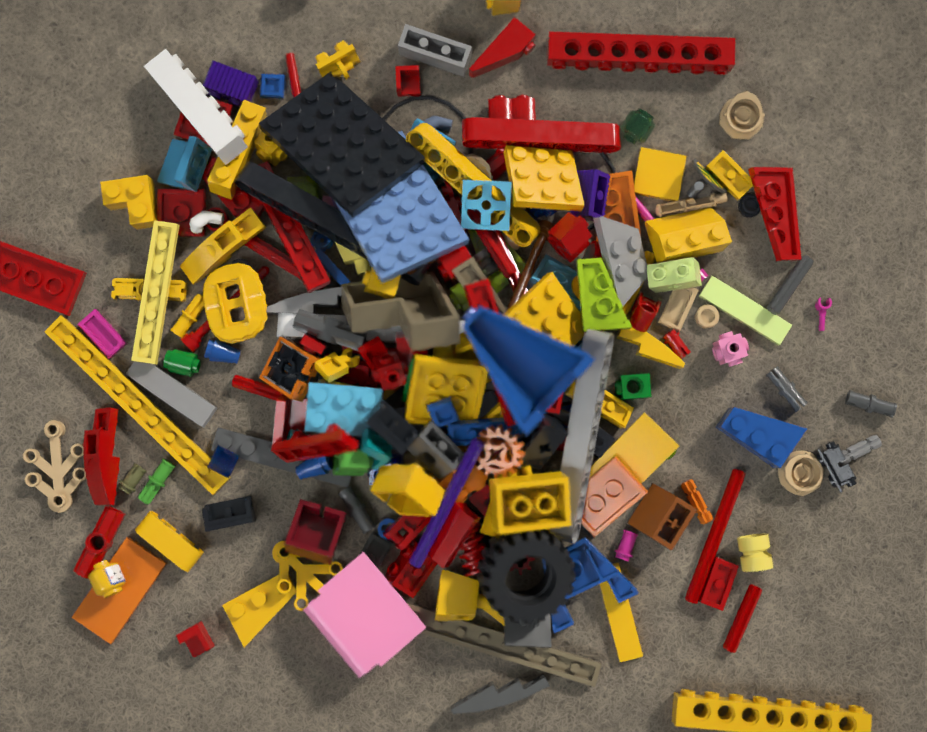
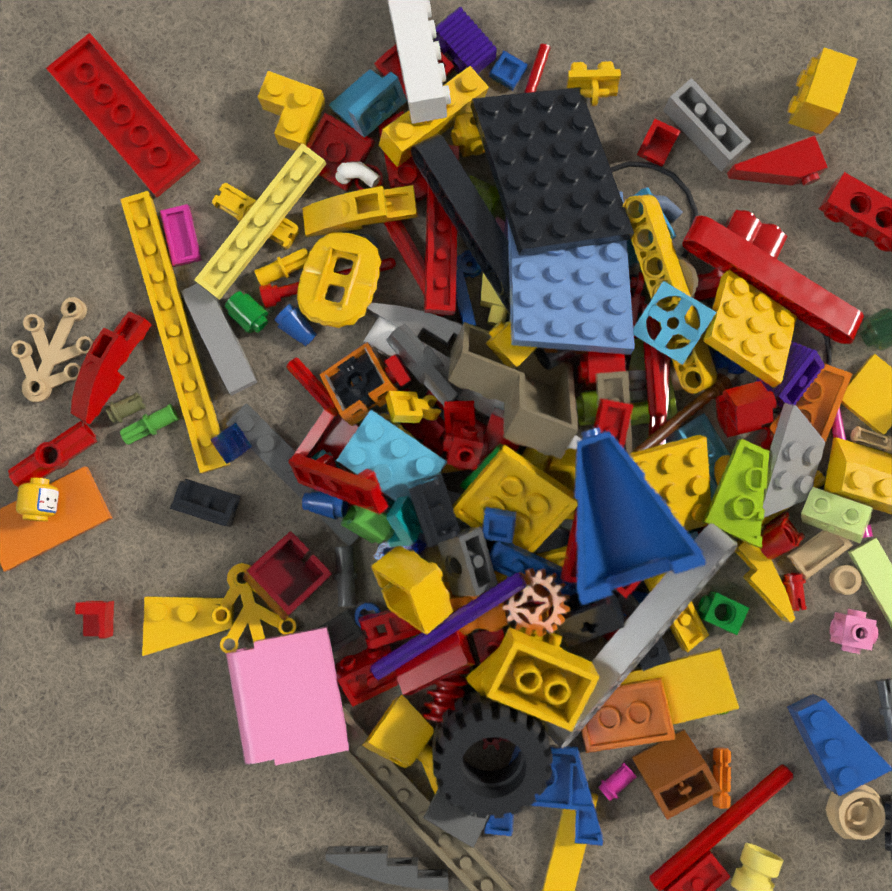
camera: 35 degrees right, 0 degrees up
(168, 541) = (125, 496): yellow beam -> none

